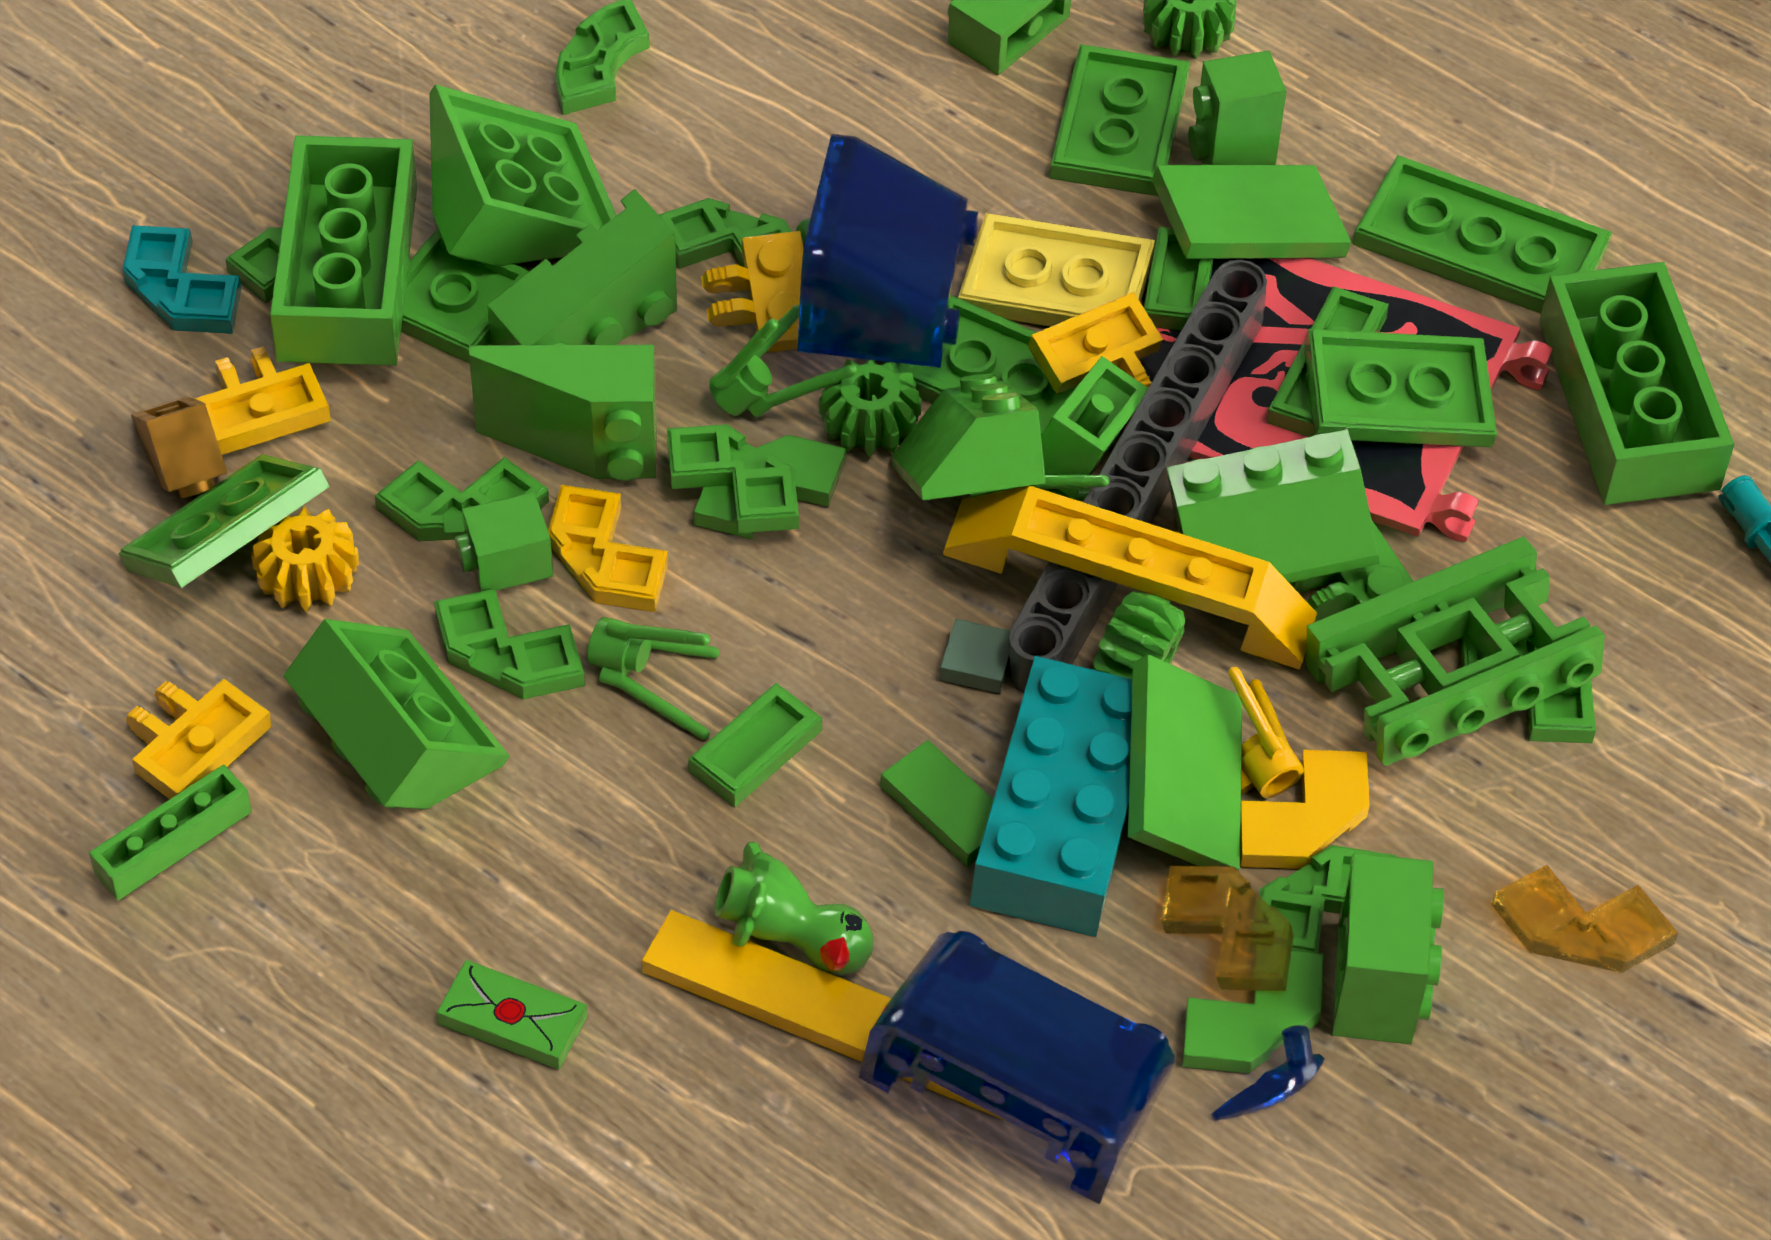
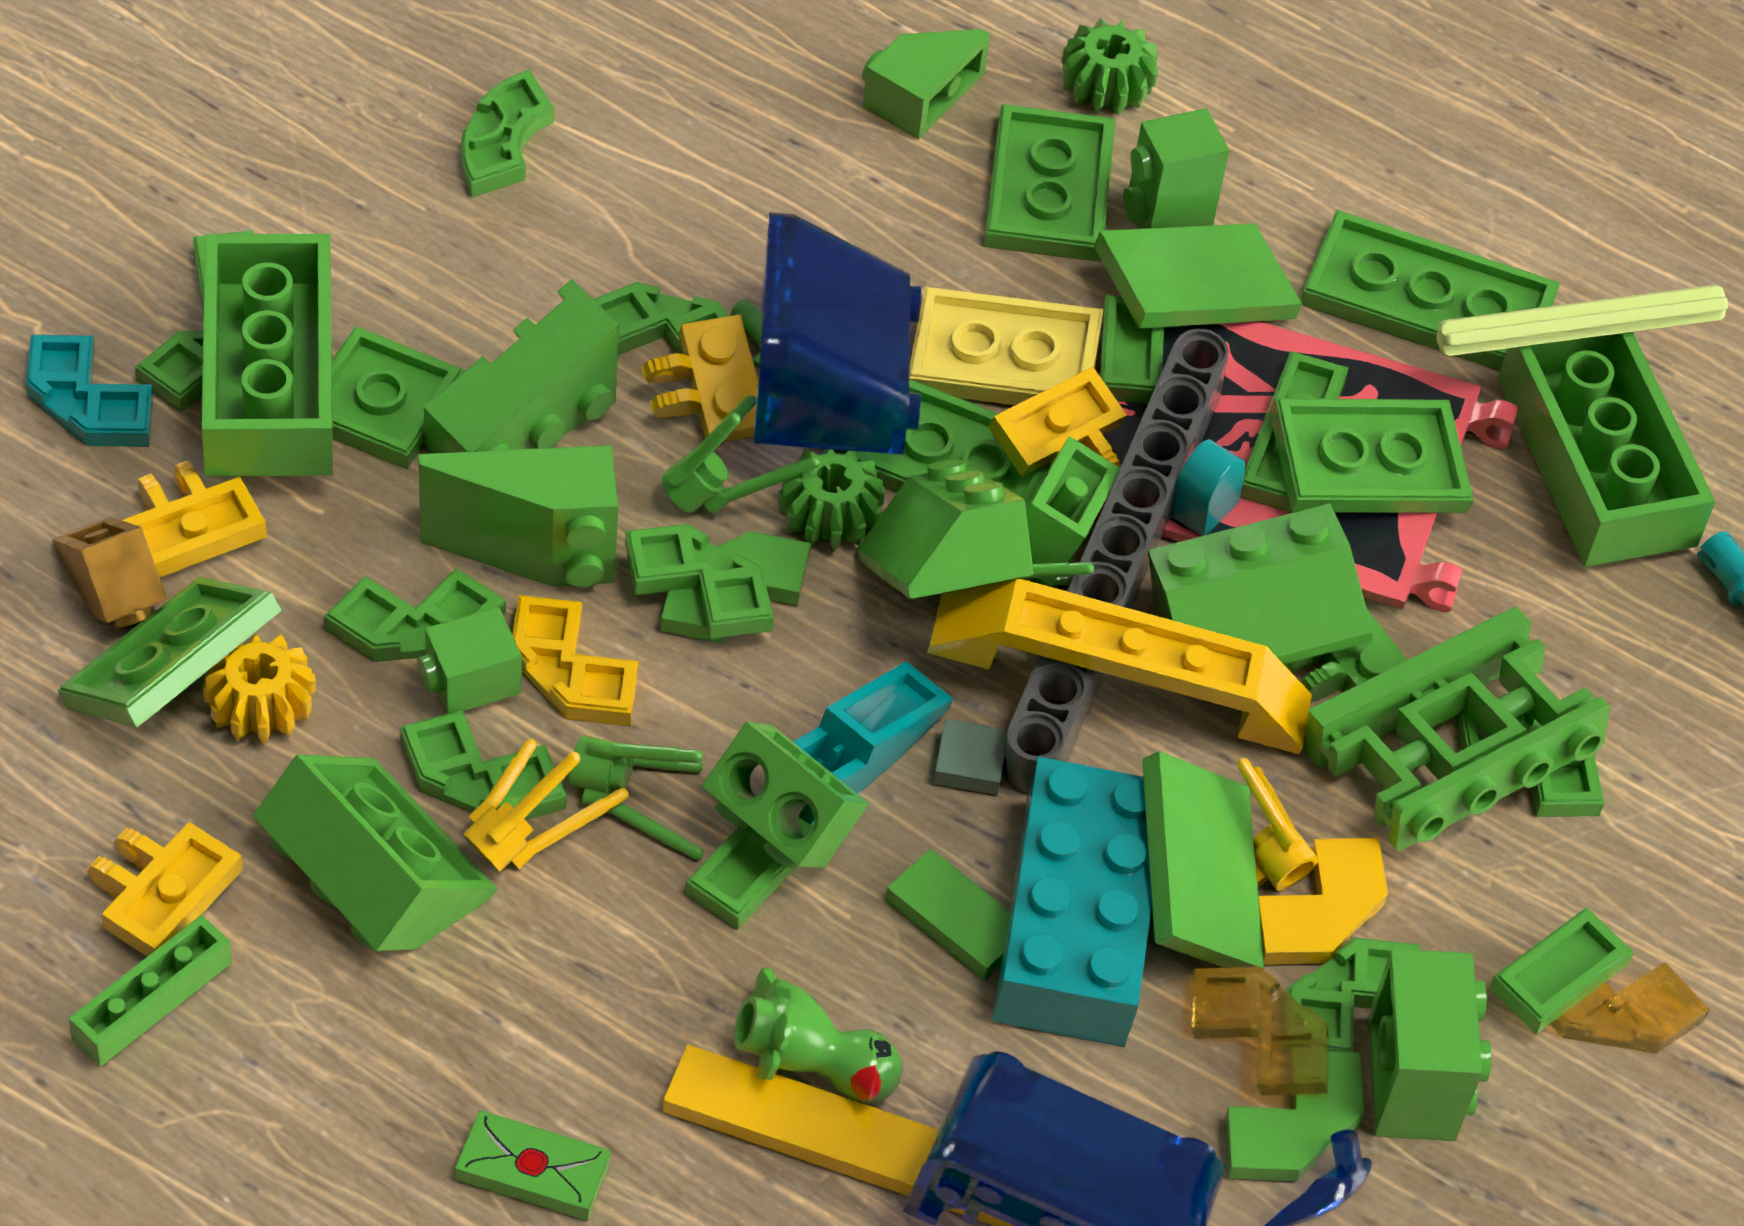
camera: 10 degrees left, 0 degrees up
(509, 180) = (431, 273): bright green slope -> none
(516, 701) = (502, 832): none -> yellow plant
(791, 671) = (790, 784): none -> bright green brick
(866, 636) = (874, 727): none -> teal slope
(1139, 628) = (1141, 725): bright green gear -> none
(1234, 410) = (1207, 487): none -> teal piece
(1531, 886) = (1561, 970): none -> bright green tile
(1619, 265) = (1581, 320): none -> yellowish green axle

